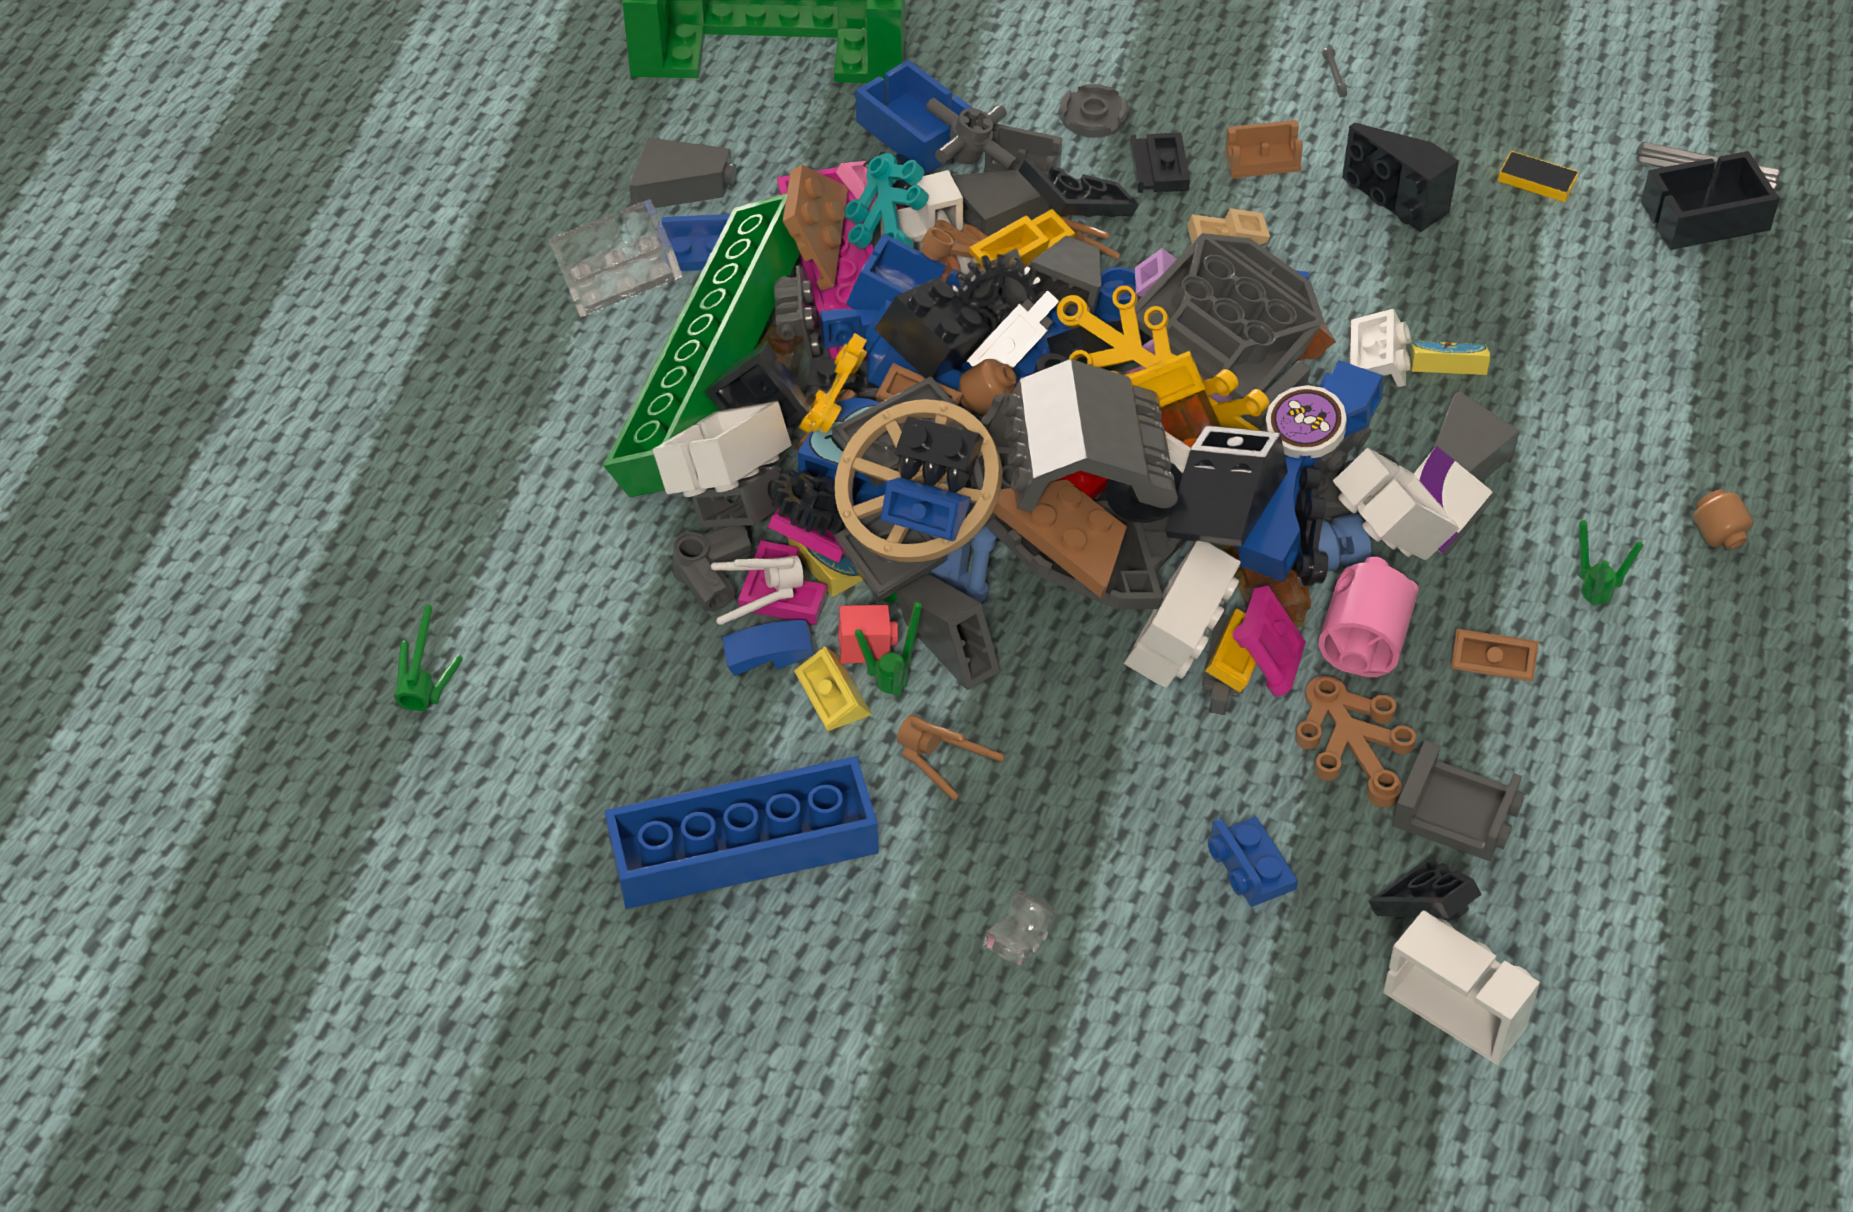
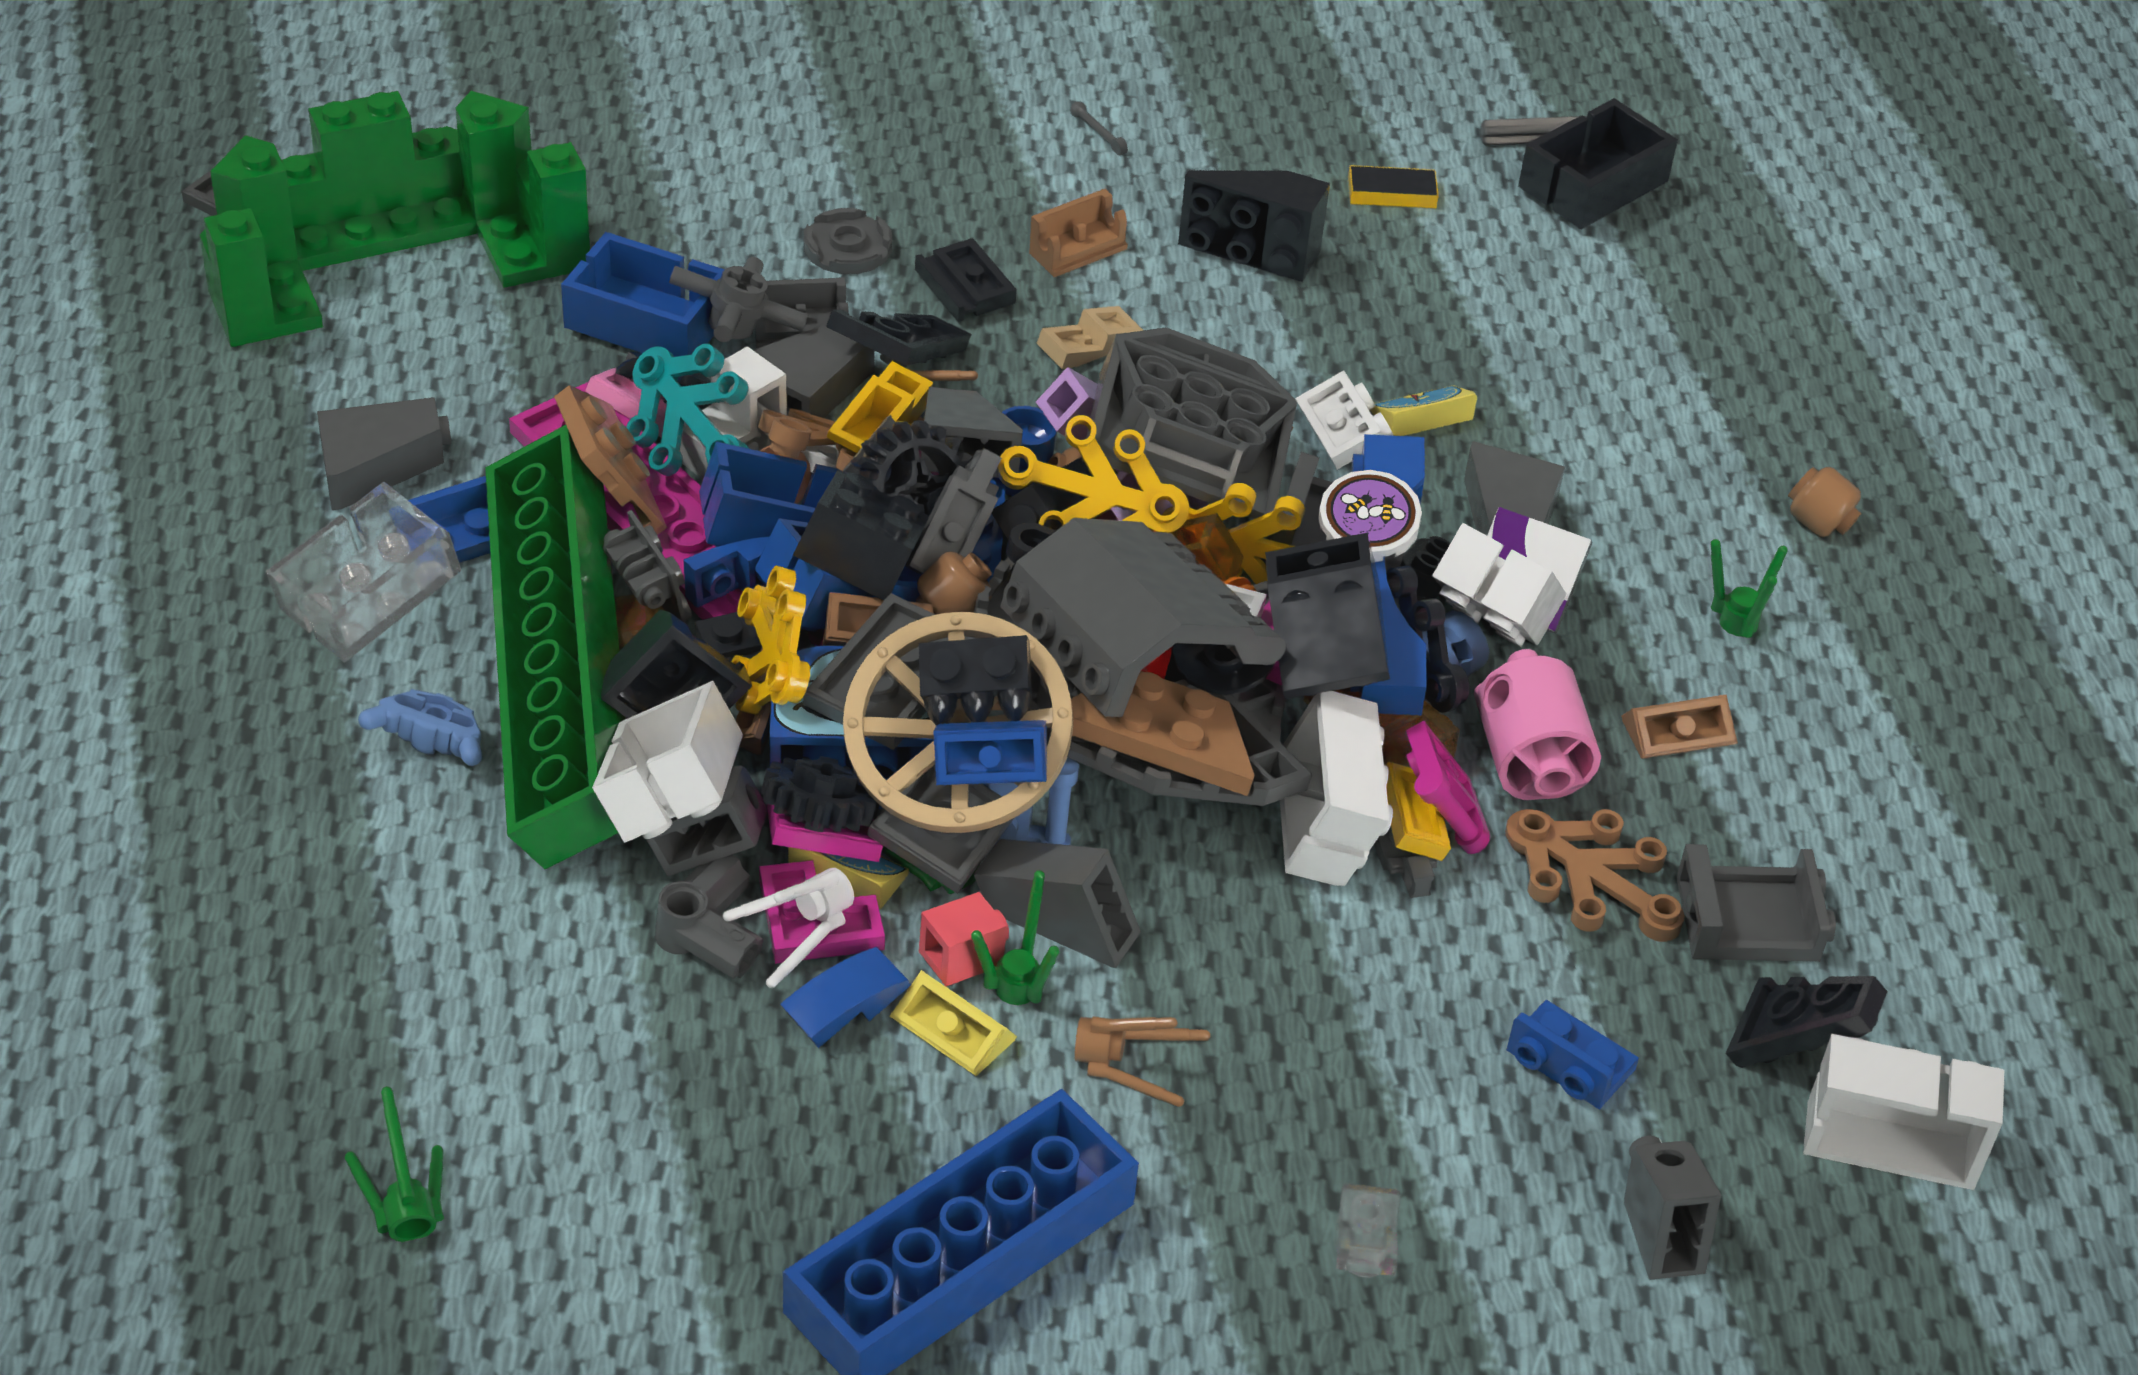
camera: 30 degrees left, 5 degrees down
(605, 373) = (429, 723): none -> medium blue piece
(1171, 379) = (1182, 510): yellow tile -> none
(1246, 970) = (1668, 1185): none -> dark grey torso

